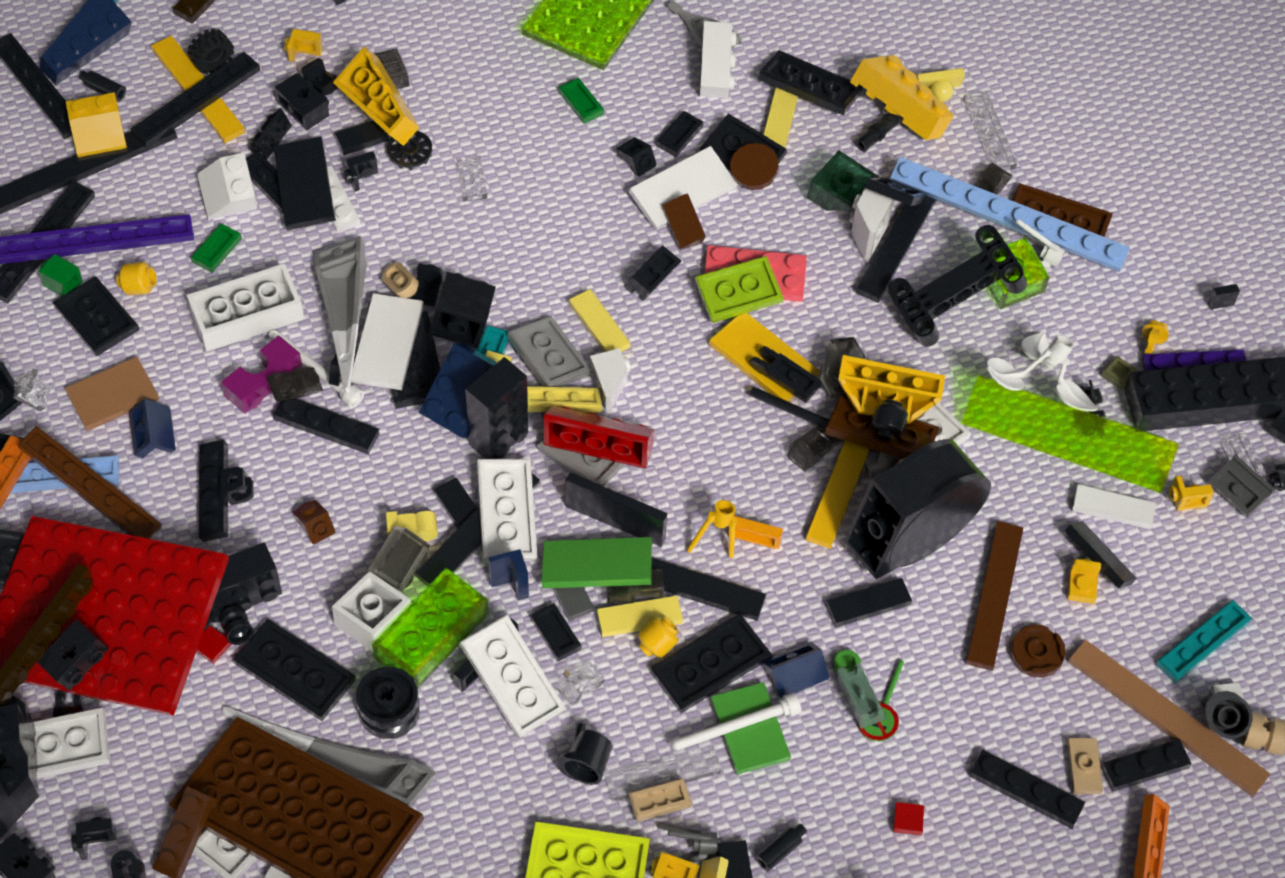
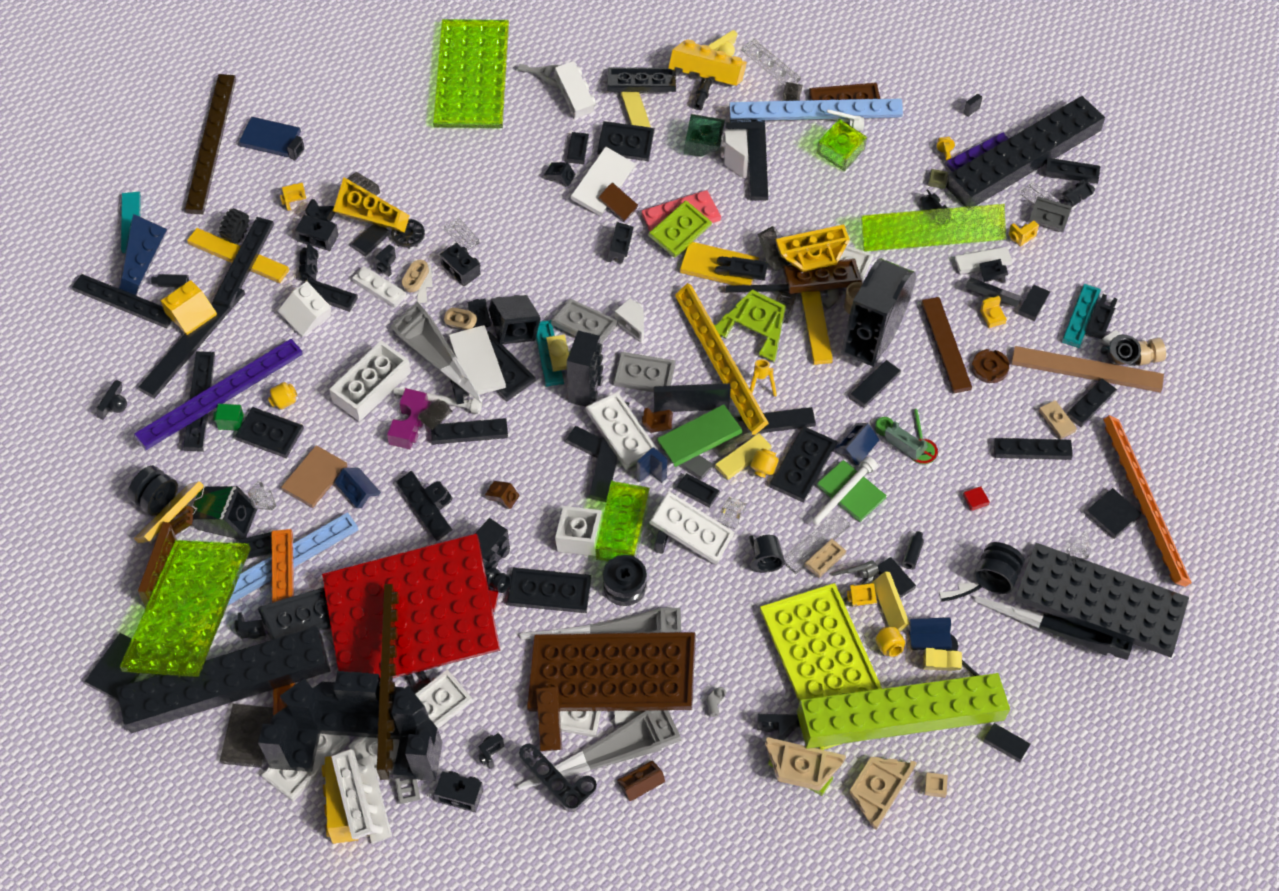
camera: 25 degrees left, 0 degrees up
(73, 655) = (412, 633): black brick -> none
(88, 484) = (342, 538): reddish brown tile -> none
(216, 248) = (321, 353): green tile -> none
(304, 183) = (355, 284): black tile -> none
(381, 205) = (415, 277): none -> tan plate
(393, 218) = (422, 293): none -> white sticker
(399, 558) = (575, 488): clear smoke brick -> none
(422, 523) = (567, 469): light yellow leg -> none
(444, 213) = (460, 264): none -> black brick
(447, 396) = (549, 368): dark blue brick -> none
(557, 518) = (658, 420): none -> reddish brown bracket
(578, 399) = (619, 344): light yellow tile -> none
(581, 100) = (500, 153): green tile -> none
(598, 436) = (653, 358): red slope -> none
(599, 322) = (603, 289): light yellow tile -> none
(686, 479) = (721, 359): none -> yellow plate
(754, 166) = (641, 147): reddish brown tile -> none
(758, 533) = (785, 373): light orange tile -> none
(770, 445) = (759, 315): none -> lime wing
(889, 419) = (826, 266): black head -> none
(957, 285) = (815, 166): black beam -> none
(1050, 355) = (902, 180): white plant -> none
(1116, 526) = (993, 270): none -> black bracket
(1148, 594) = (1034, 302): none -> black tile
(1229, 656) = (1101, 318): none -> black hinge

